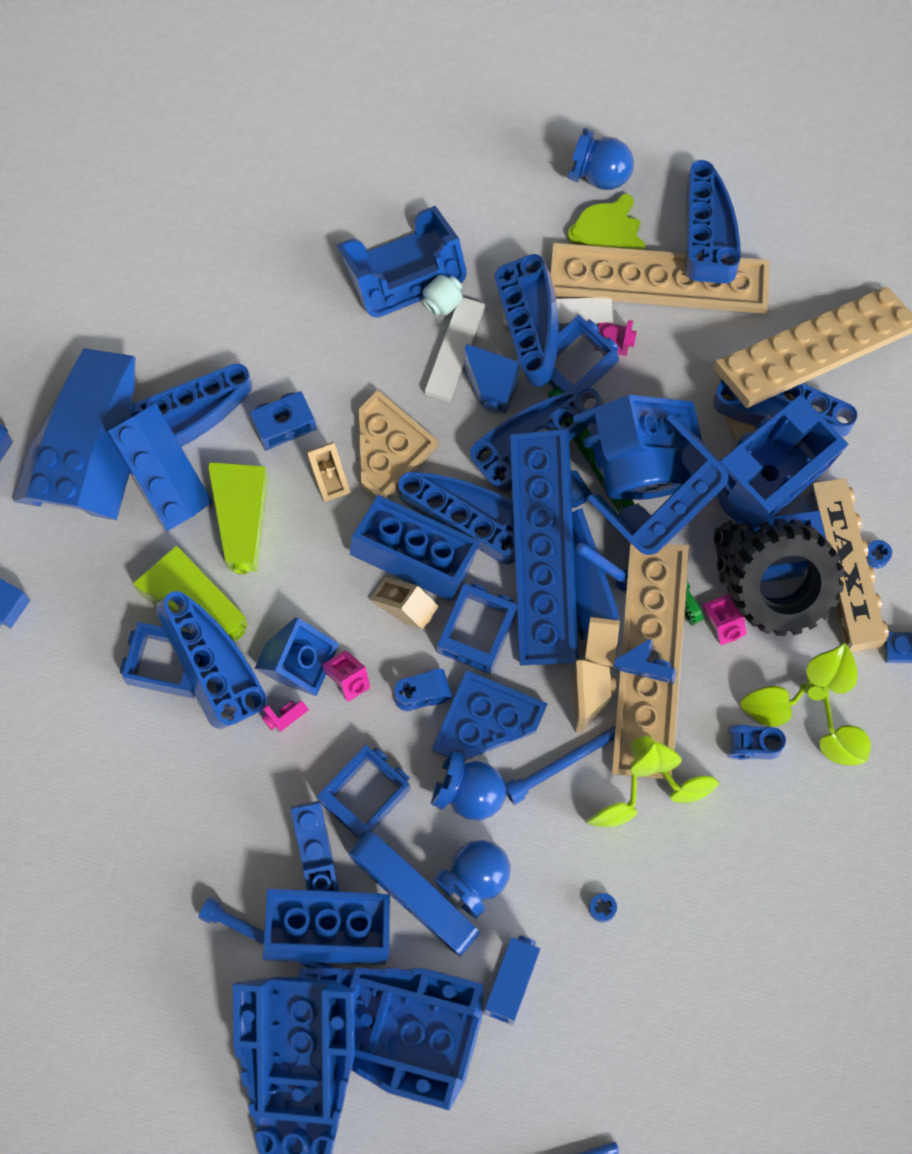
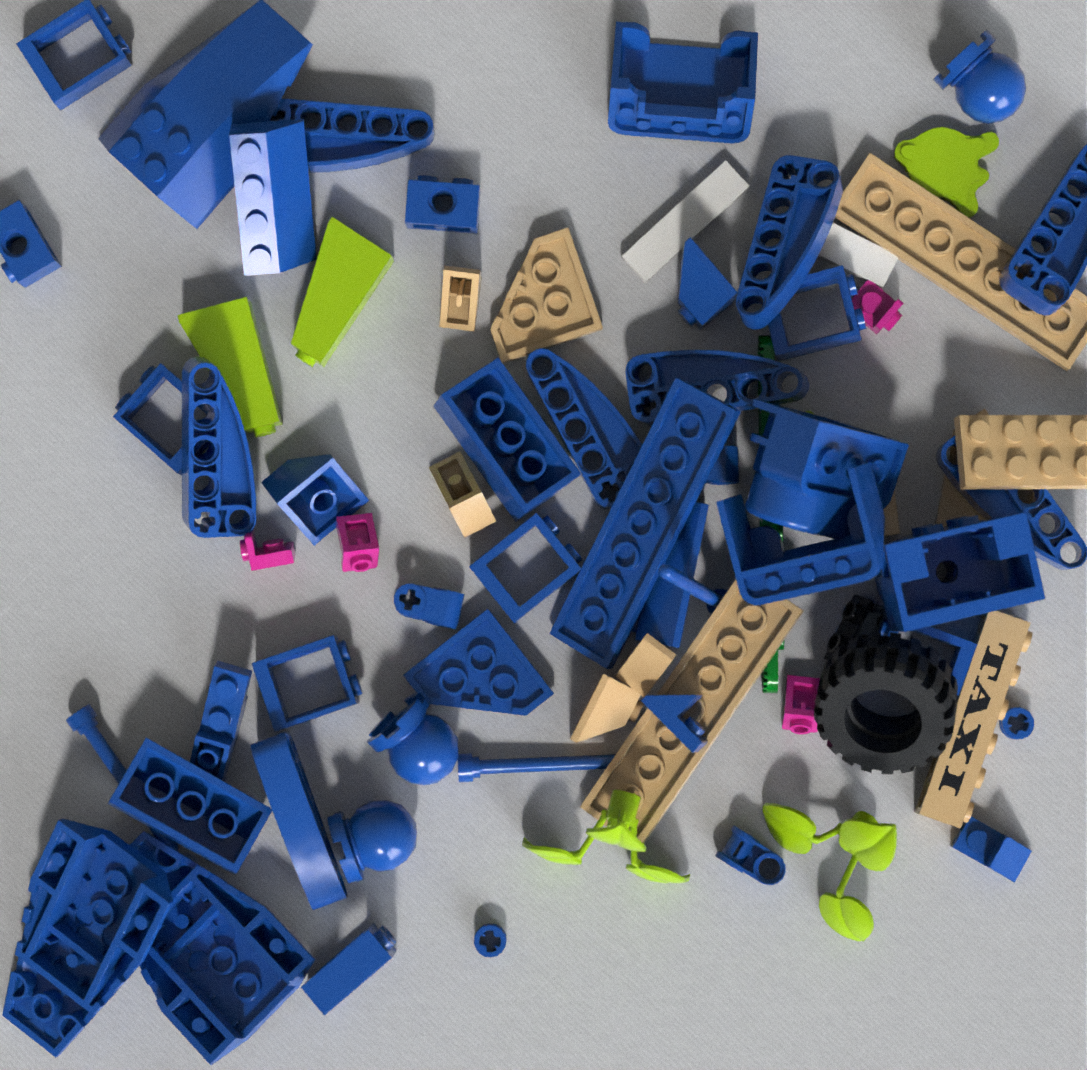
camera: 35 degrees right, 15 degrees up
(442, 295) = (705, 150): light aqua head -> none

